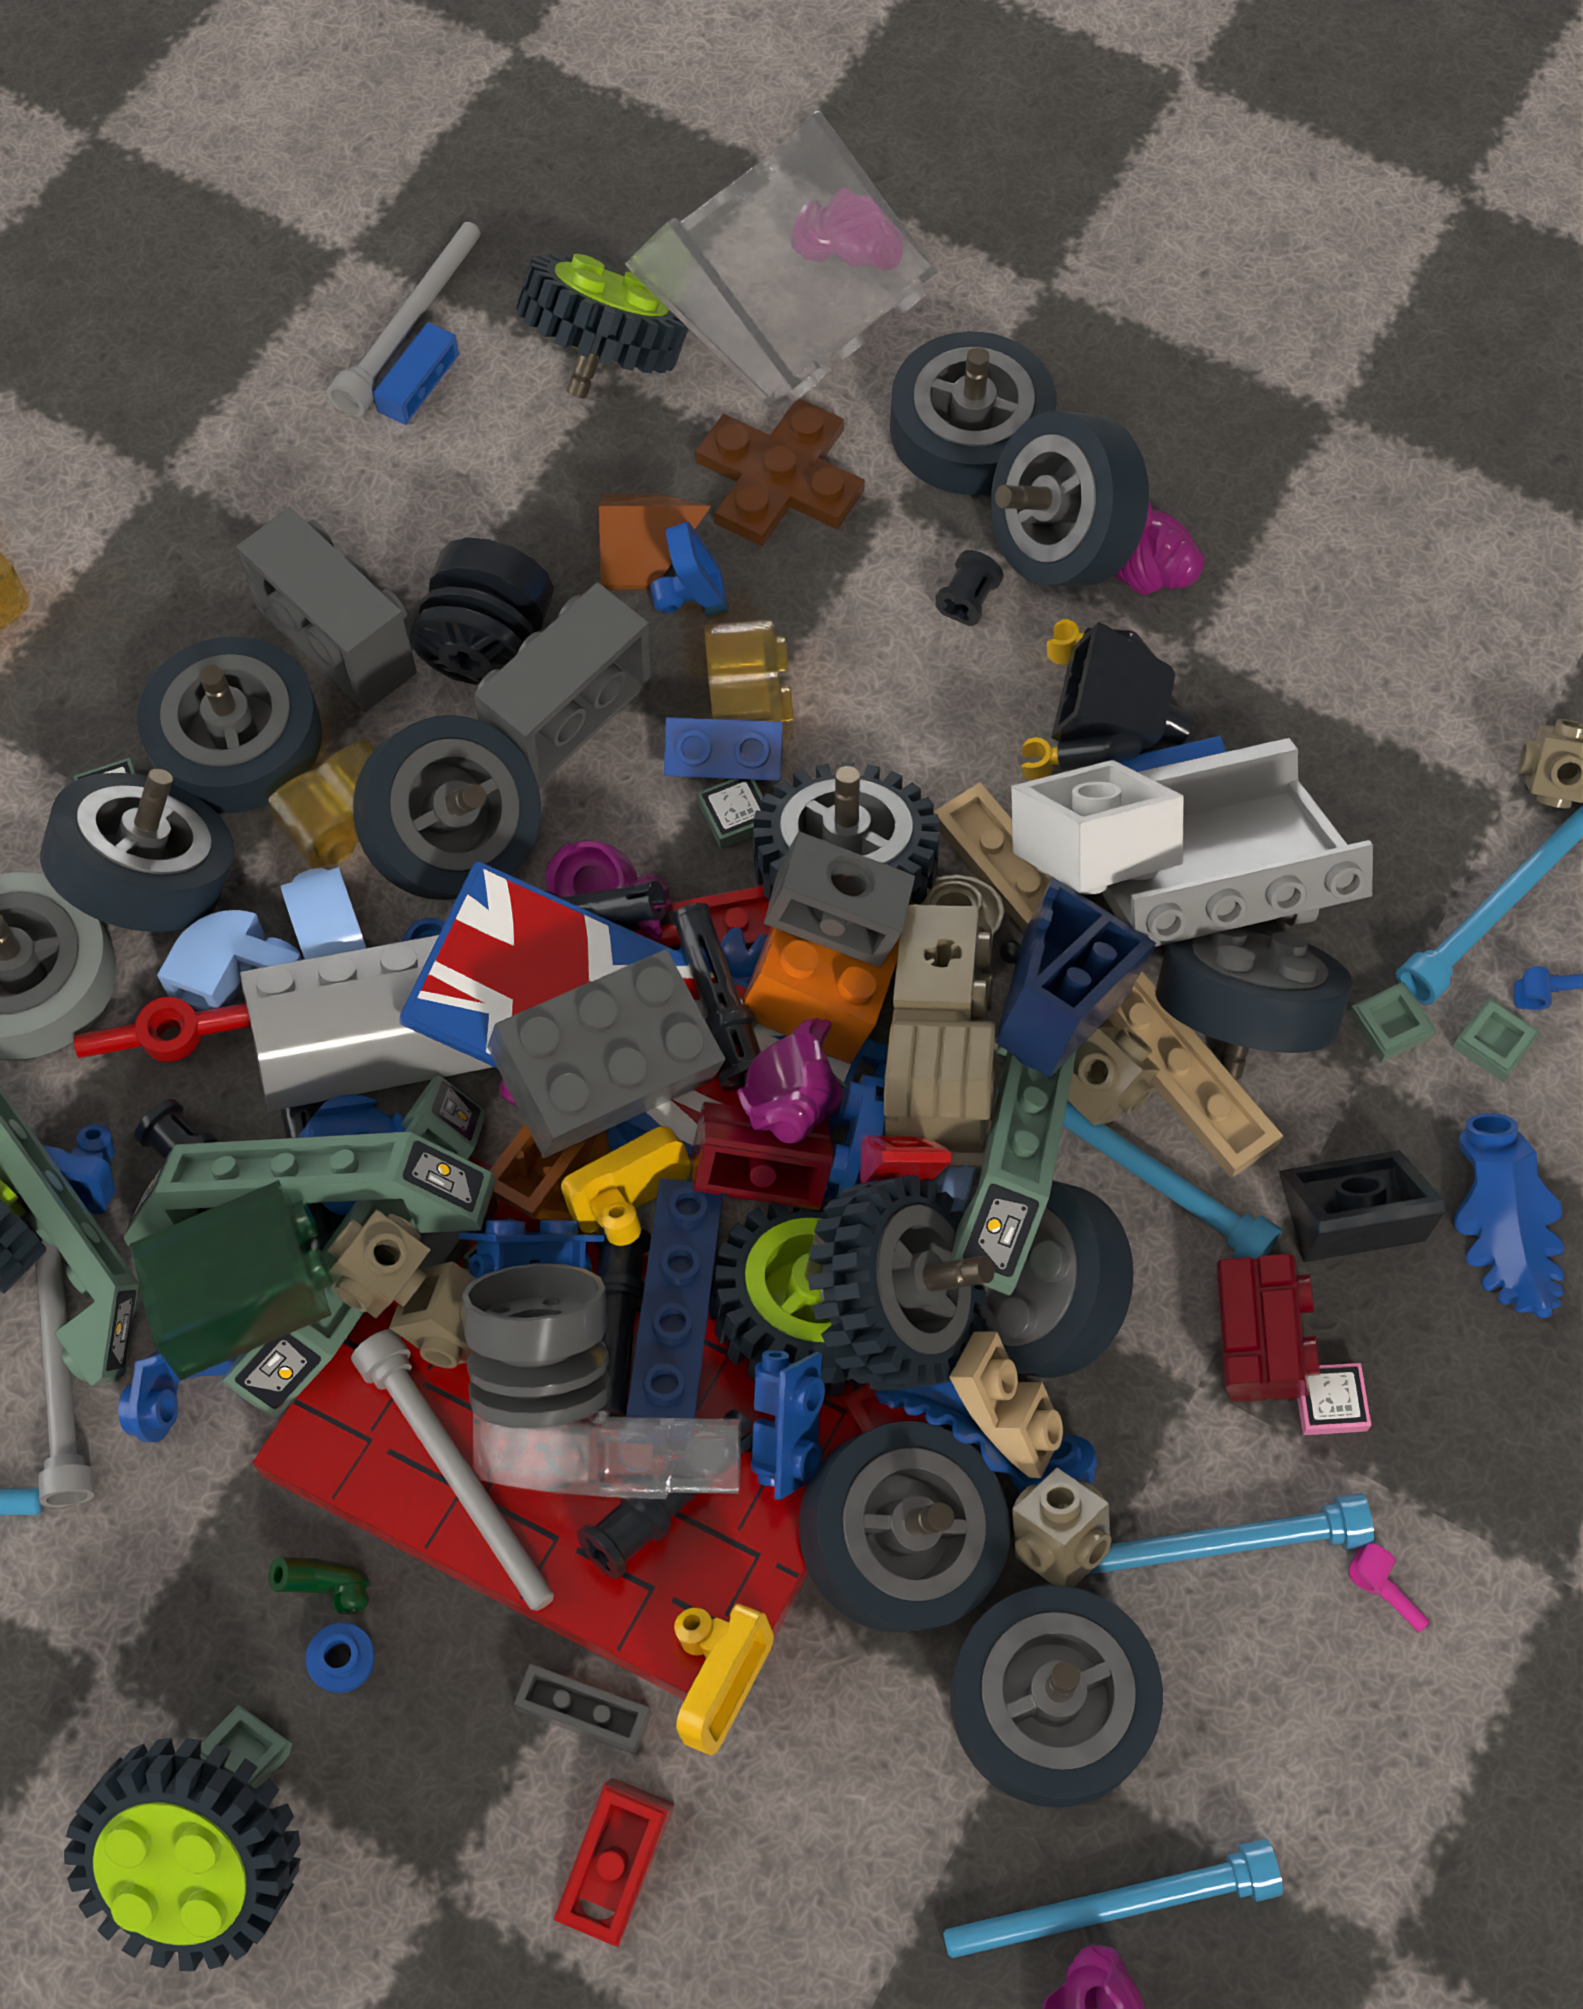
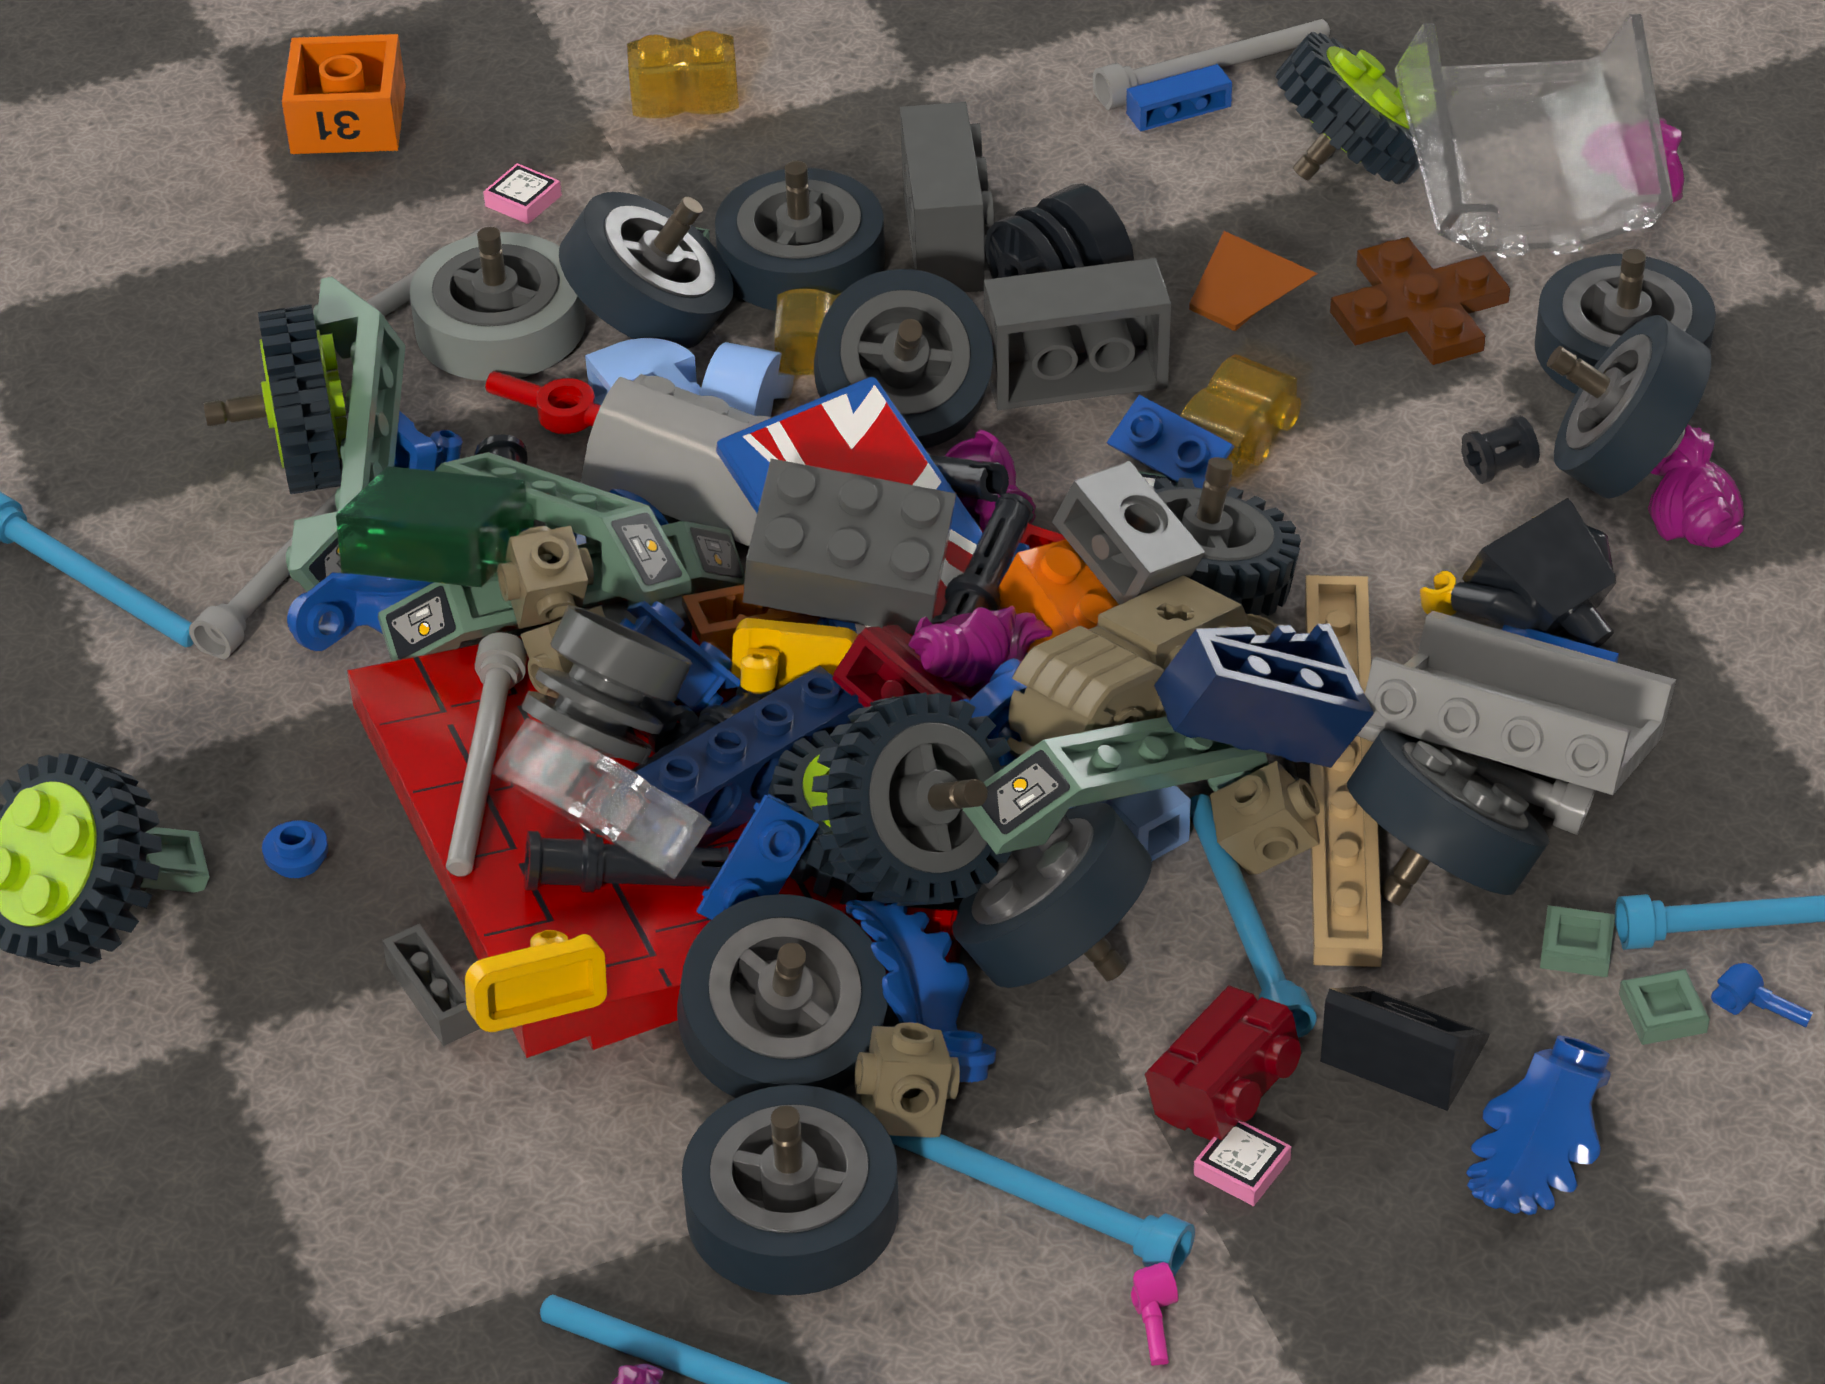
camera: 40 degrees right, 20 degrees down
(321, 1576) = (340, 802): dark green arm -> none
(614, 1859) = (360, 1090): red slope -> none
(697, 575) = (1265, 315): blue piece -> none
(901, 1156) = (996, 698): red slope -> none
(1009, 1412) = (938, 975): tan slope -> none
(1097, 826) = (1411, 619): white brick -> none

